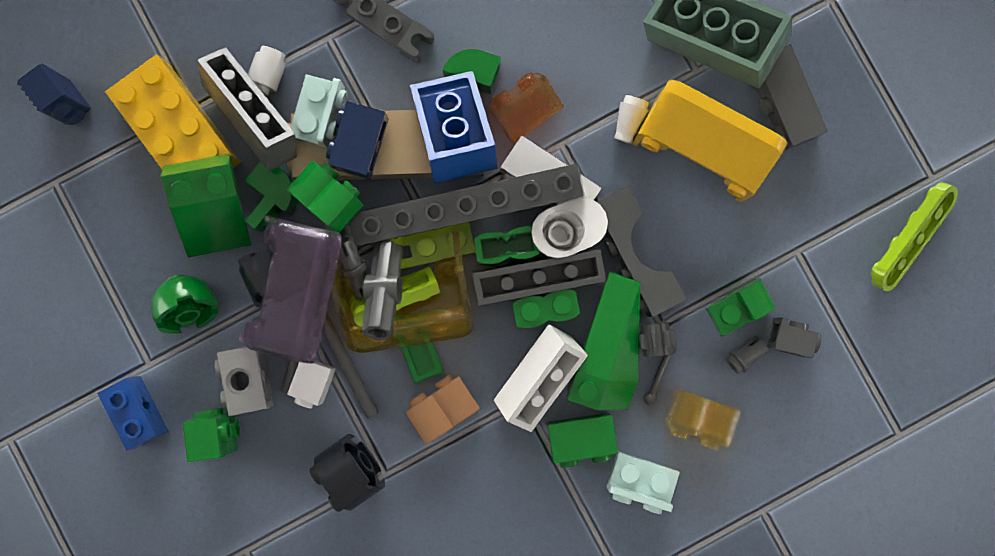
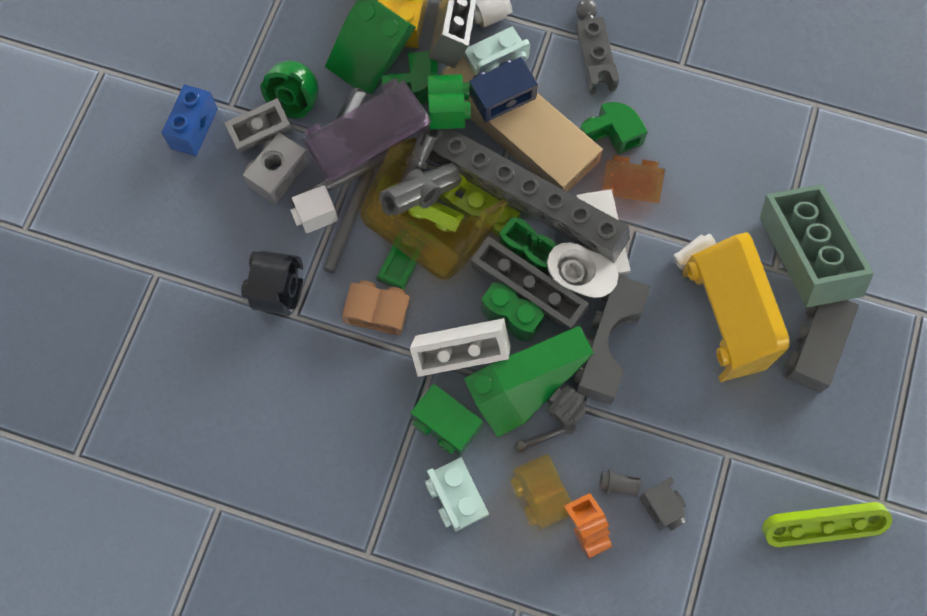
camera: 45 degrees right, 15 degrees down
(195, 363) = (258, 126): none -> light grey brick
(210, 435) = (219, 174): green brick -> none
(454, 127) = (570, 140): blue slope -> none
(741, 307) = (655, 443): green brick -> none
(759, 411) = (590, 525): none -> orange leg

